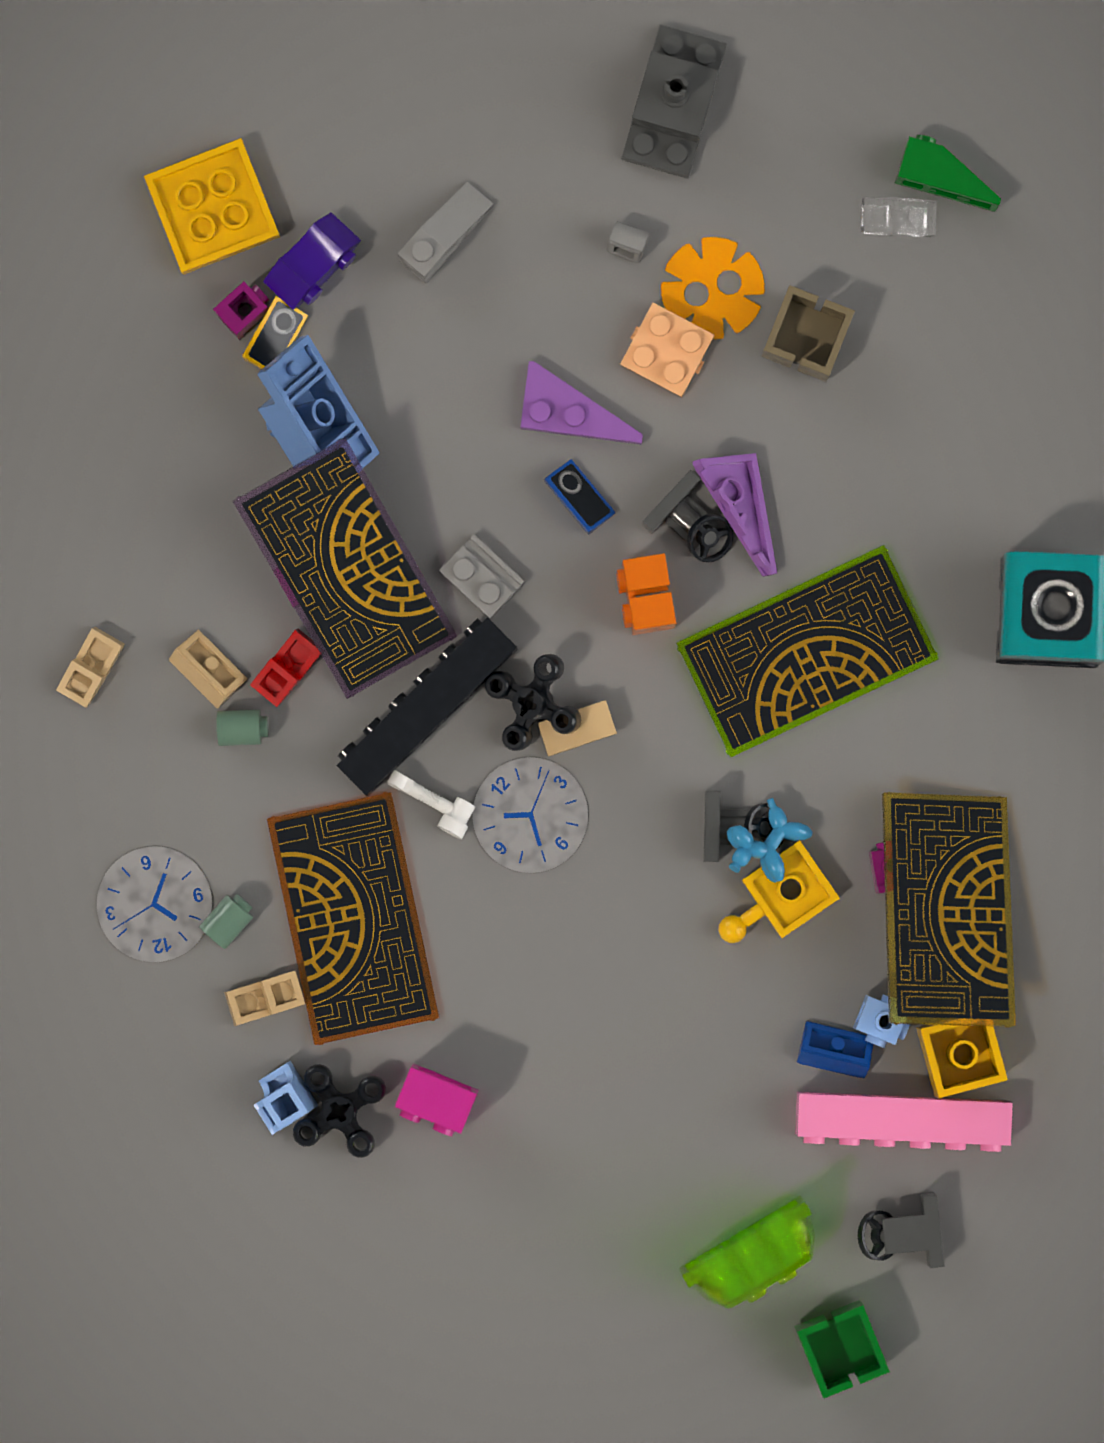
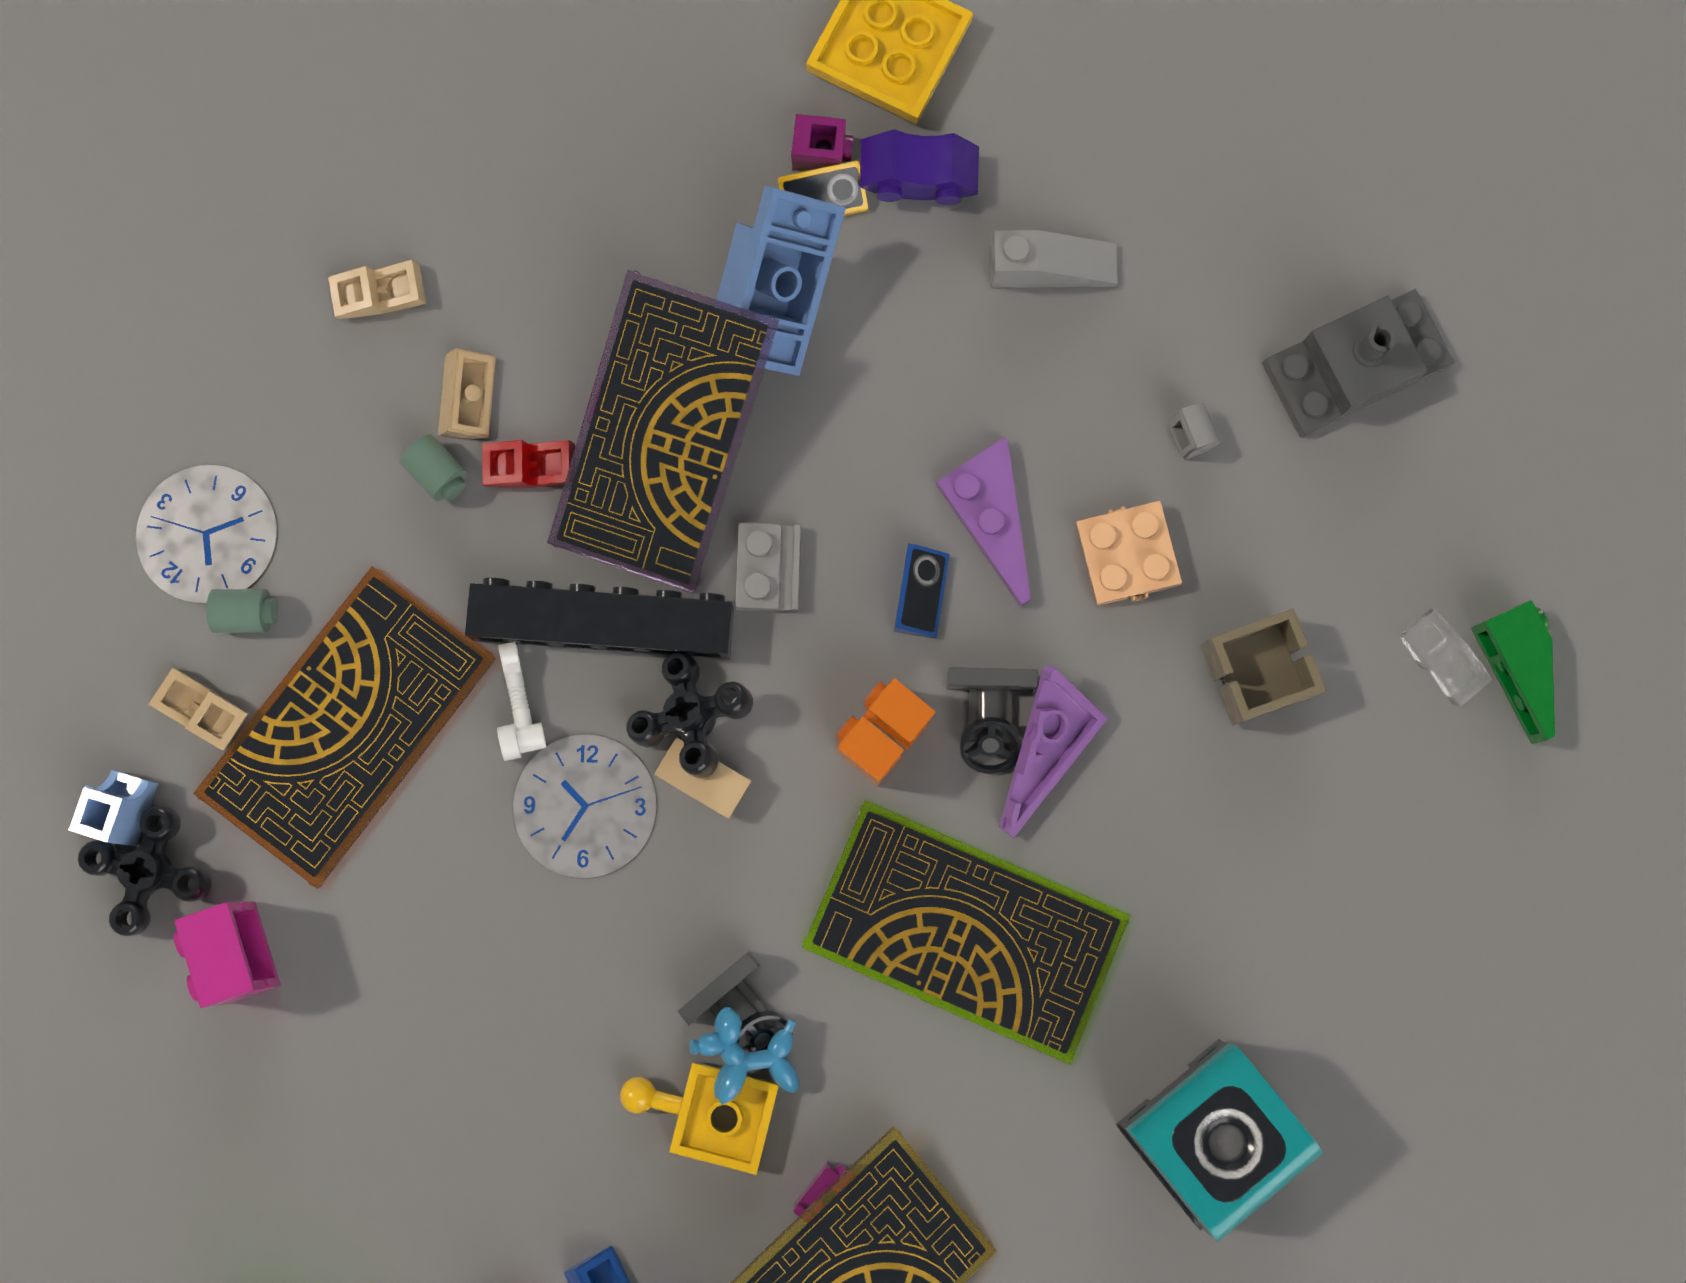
camera: 45 degrees right, 5 degrees down
(716, 259) = (1253, 526): light orange piece -> none

